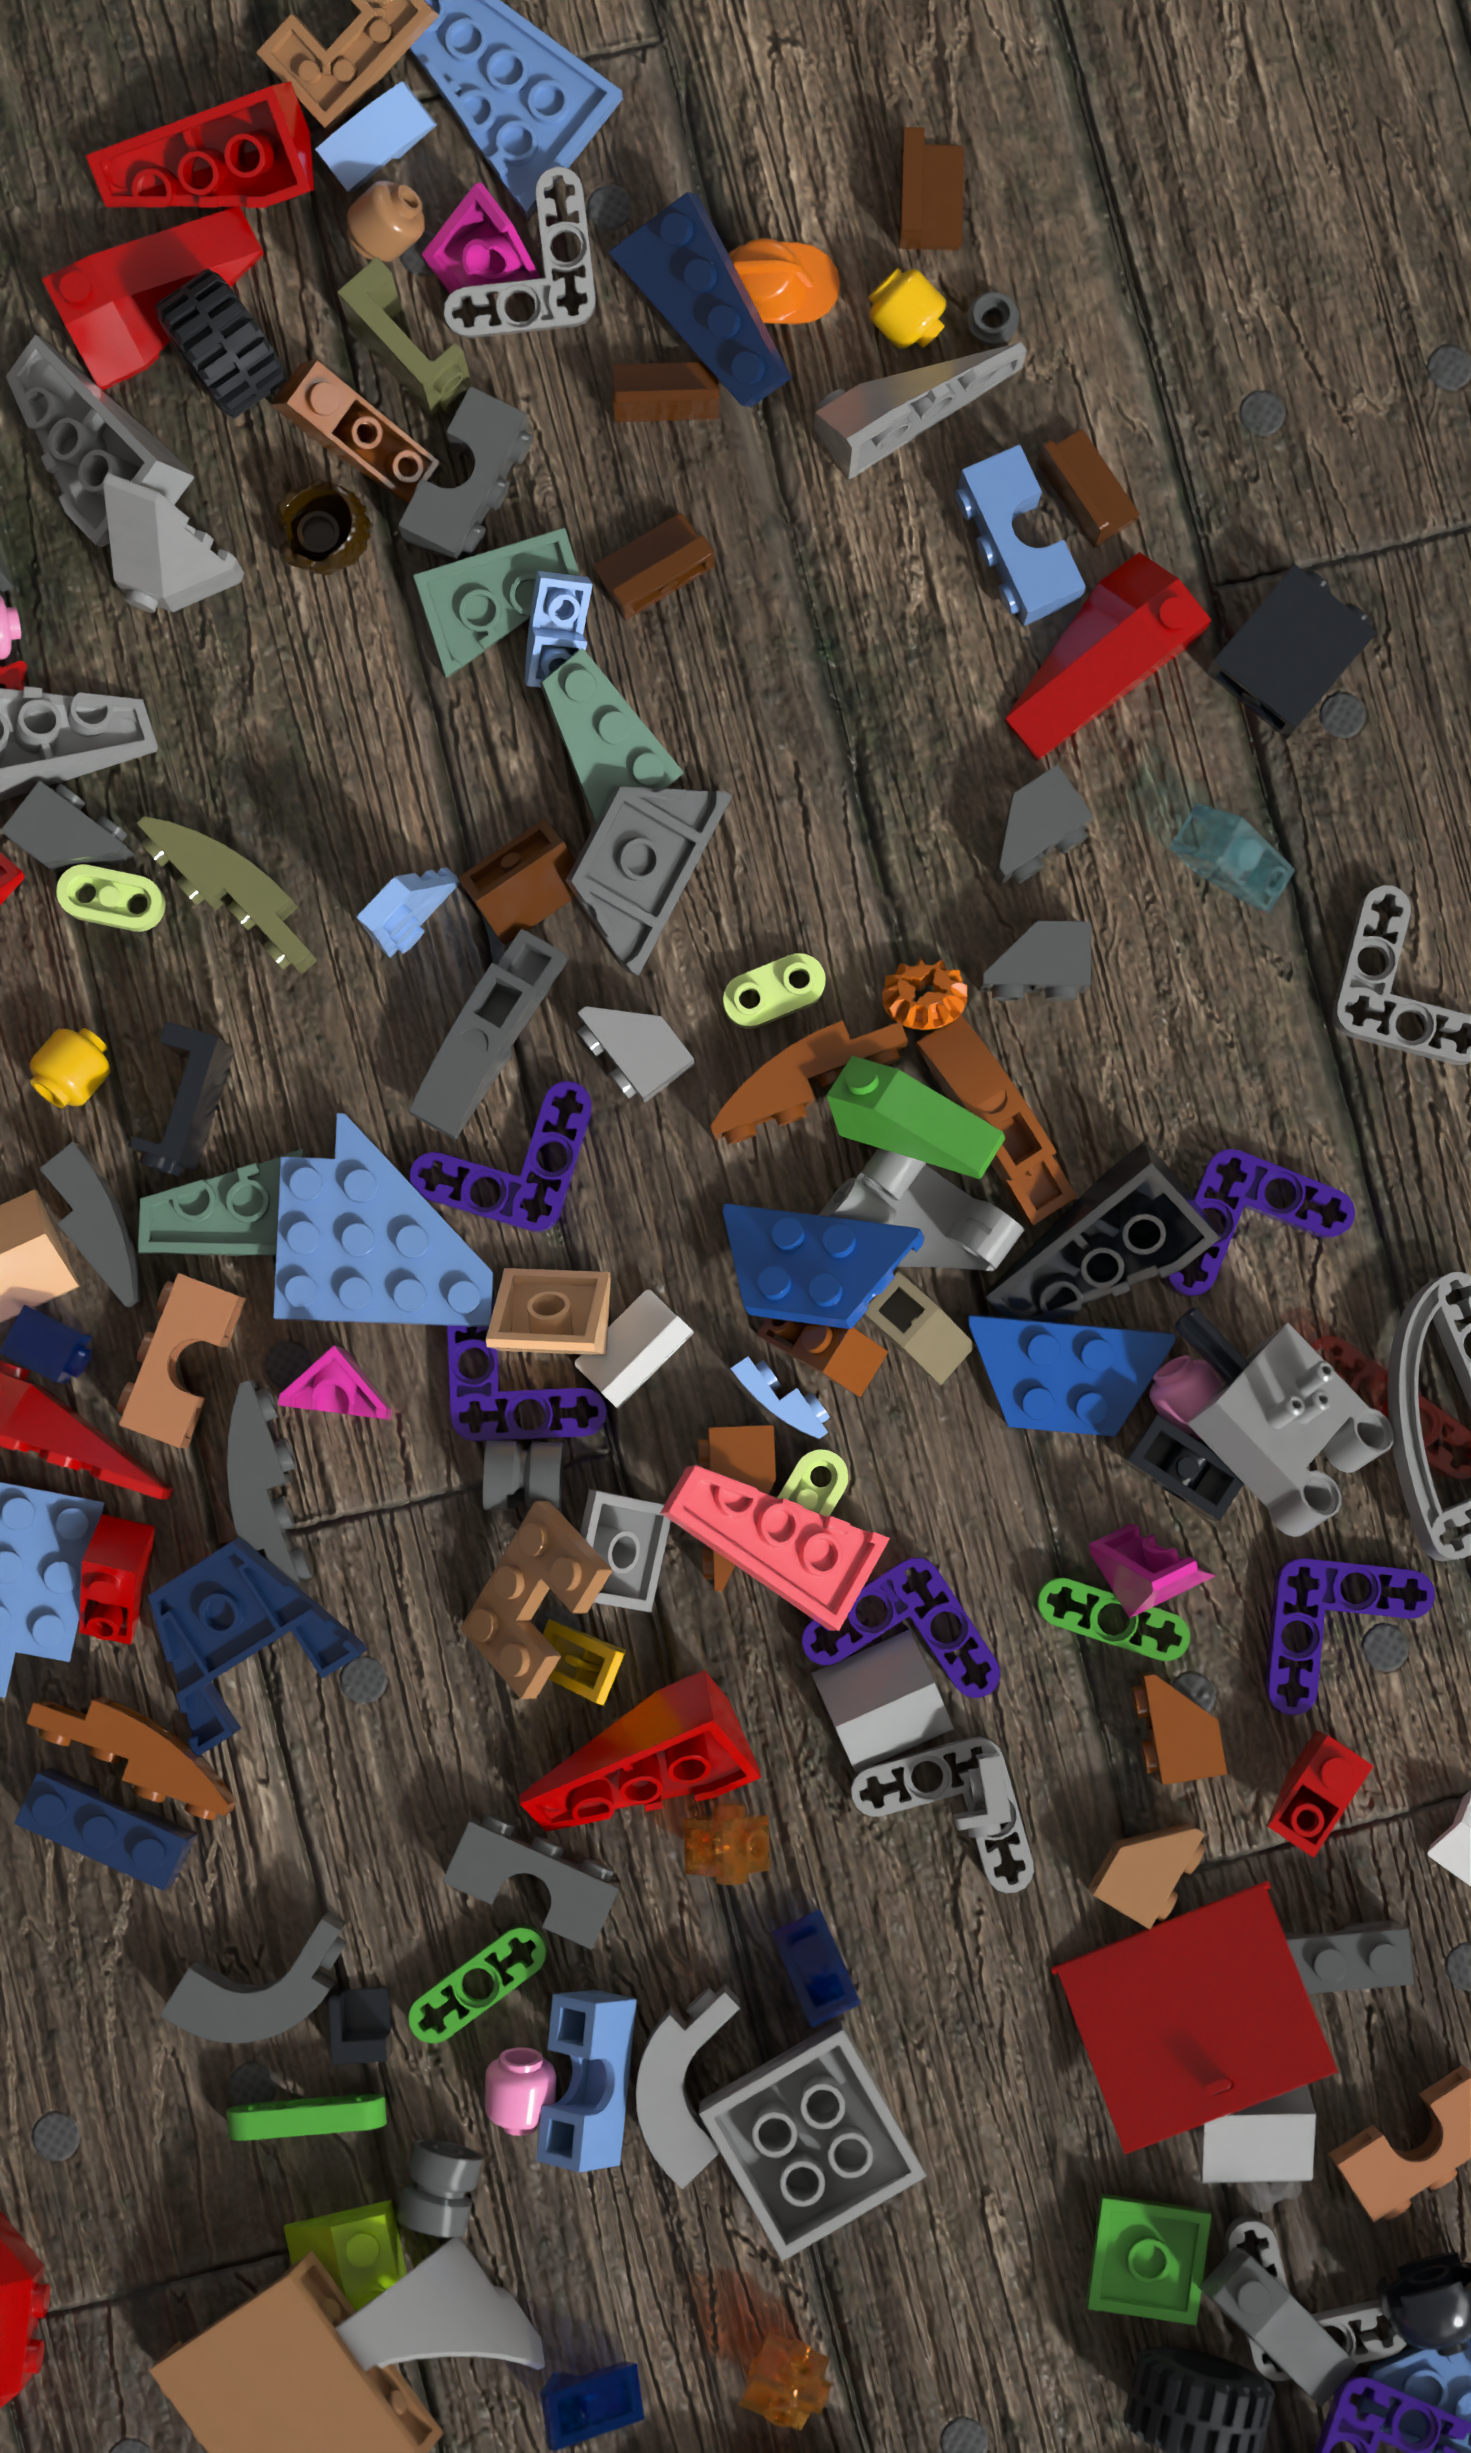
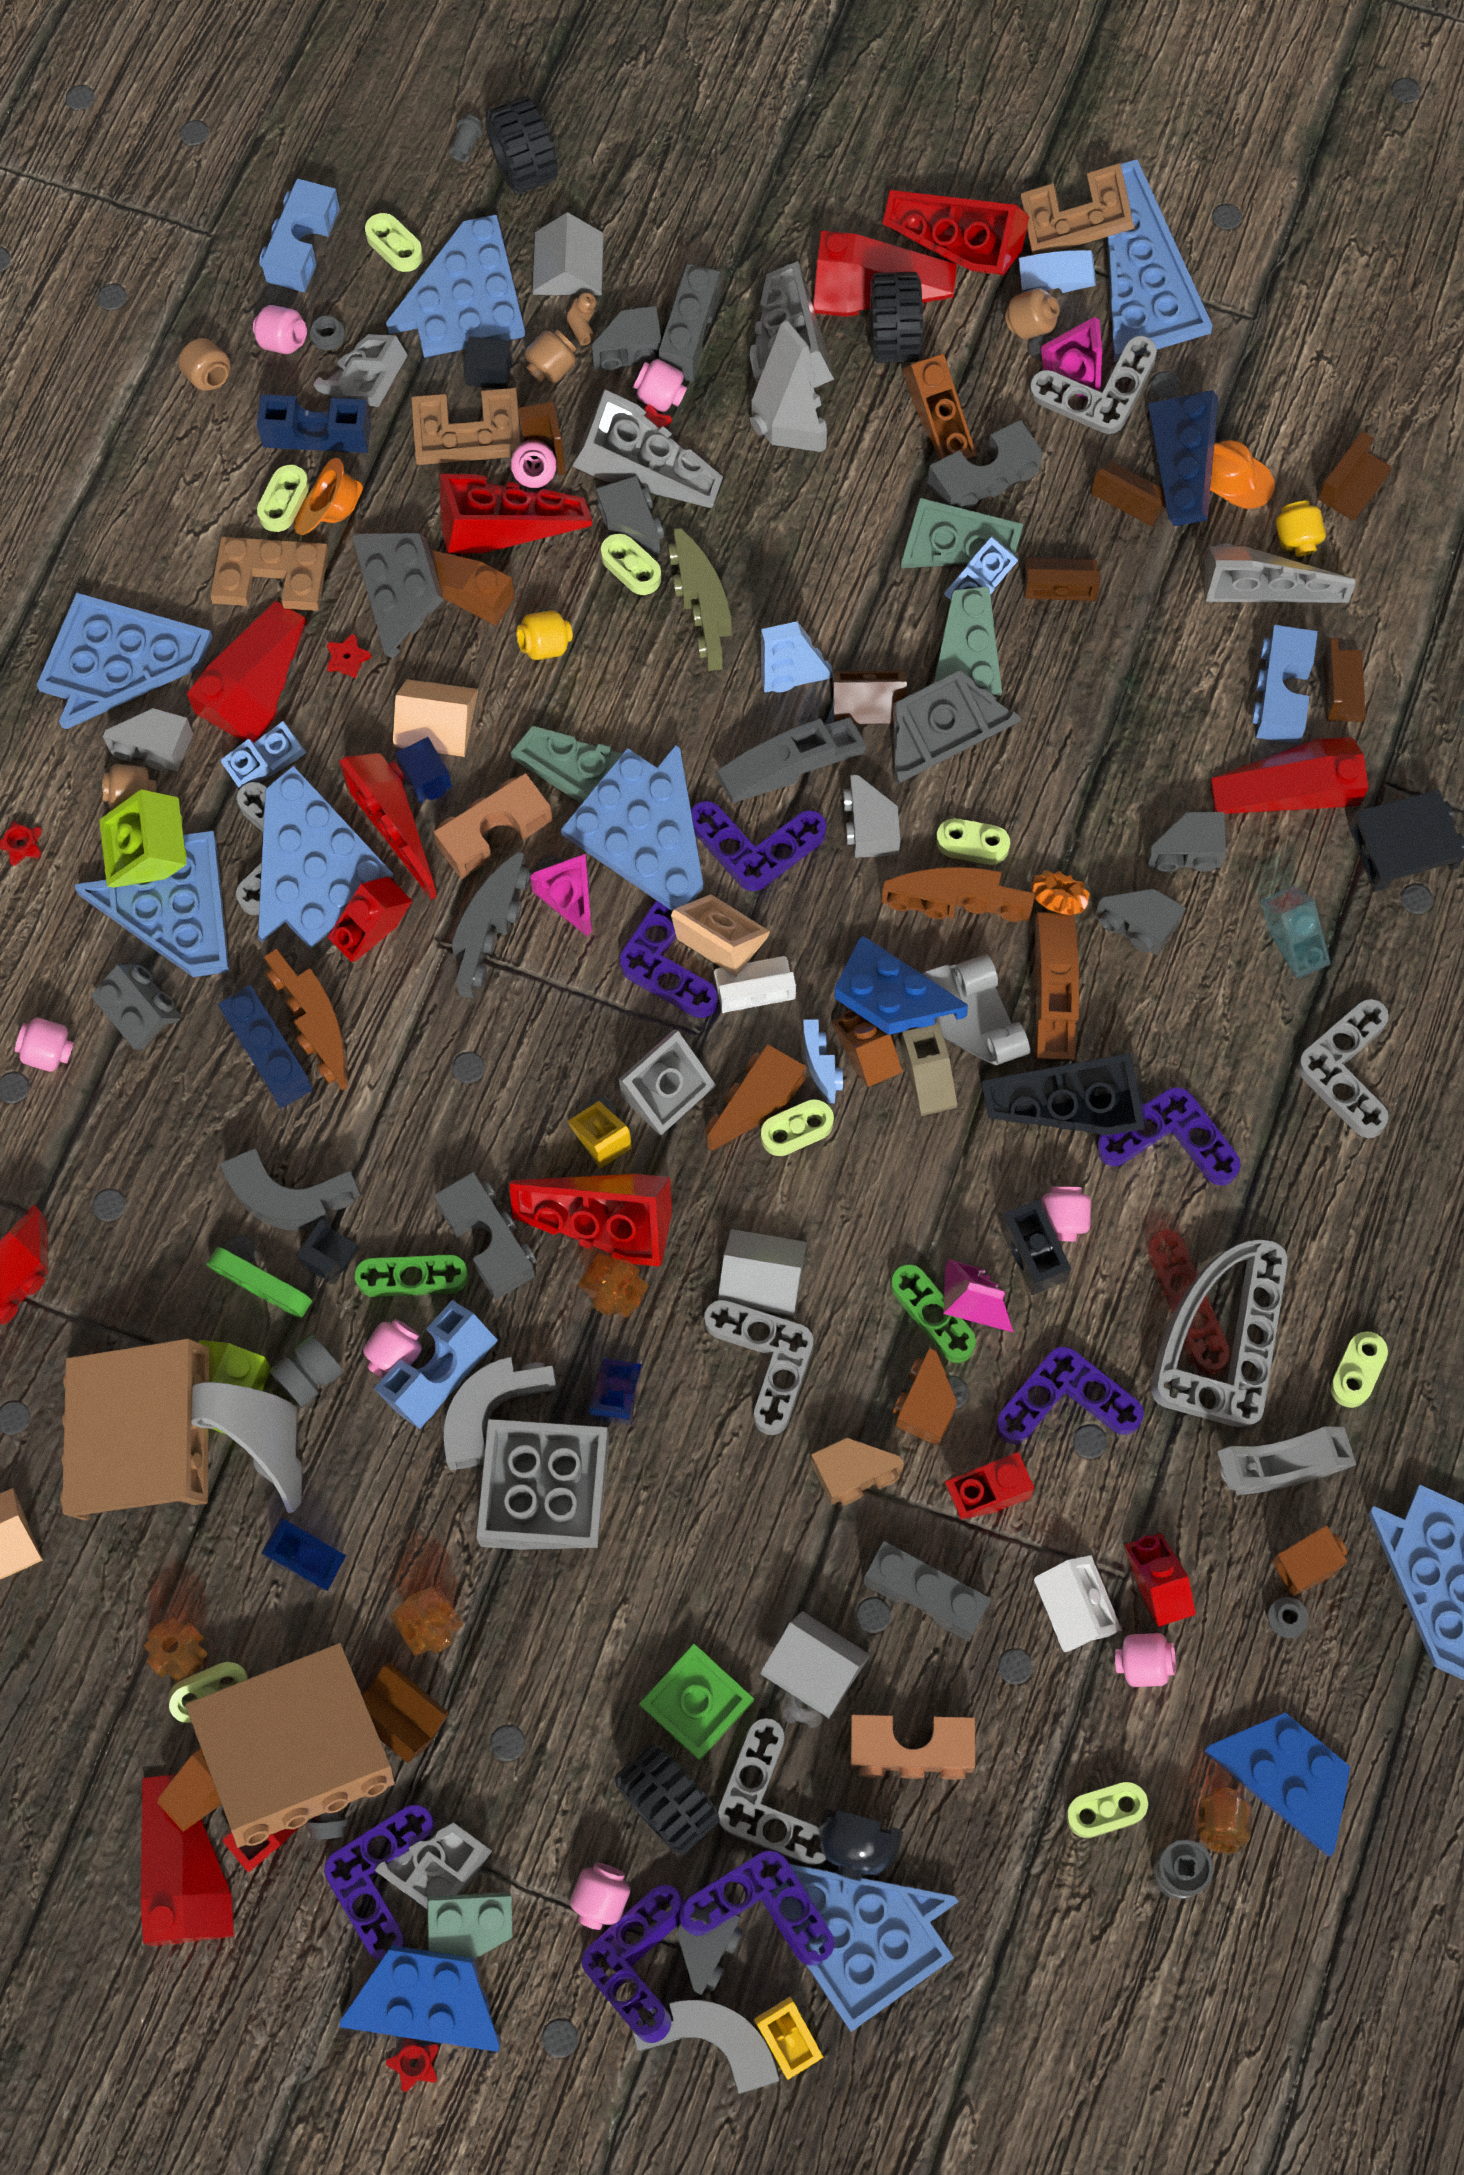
camera: 35 degrees right, 15 degrees down
(96, 1222) = (499, 723): dark grey slope -> none
(195, 1101) = (599, 690): black panel -> none
(228, 1613) = (416, 971): dark blue wing -> none
(322, 527) = (886, 445): dark brown hair -> none
(369, 307) = (994, 354): olive panel -> none
(522, 1475) = (638, 1005): dark grey wheel -> none
(540, 1557) = (623, 1050): medium nougat plate -> none
(789, 1549) = (767, 1141): coral wing -> none
(899, 1607) = (809, 1225): dark purple beam -> none
(910, 1119) = (1001, 942): bright green slope -> none
(988, 1786) = (791, 1349): light grey bracket -> none
(996, 304) = (1348, 555): dark grey plate -> none
(1067, 1372) = (1001, 1154): blue wing -> none
(1192, 2012) = (826, 1561): red piece -> none
(1277, 1418) = (1112, 1248): light grey piece -> none
(1278, 2325) = (749, 1788): dark grey slope -> none

